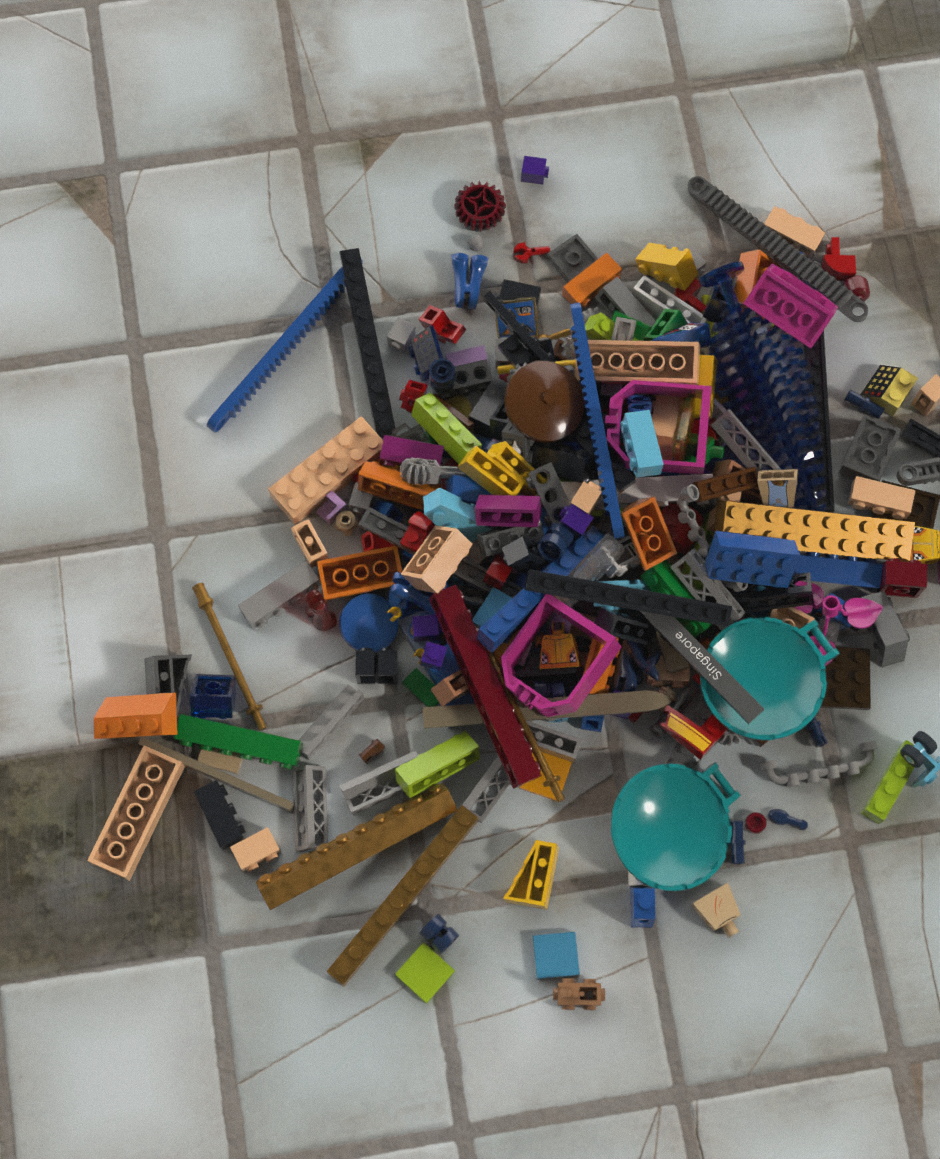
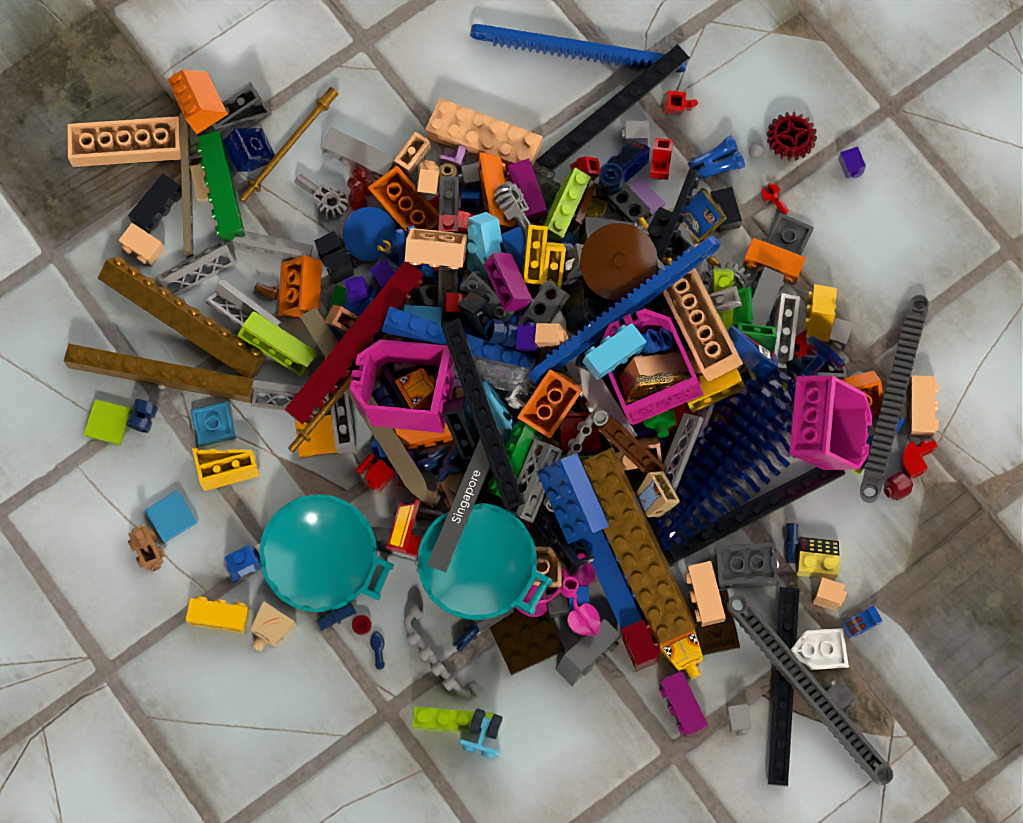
camera: 70 degrees right, 0 degrees up
(303, 649) = (323, 196): none -> light grey gear
(347, 538) = (427, 177): none -> light nougat brick
(386, 717) = (299, 286): none -> orange slope
(393, 284) = (676, 103): none -> red brick
(481, 868) = (213, 424): none -> dark azure tile
(616, 733) = (378, 474): none -> red brick
(681, 955) = (218, 614): none -> yellow brick

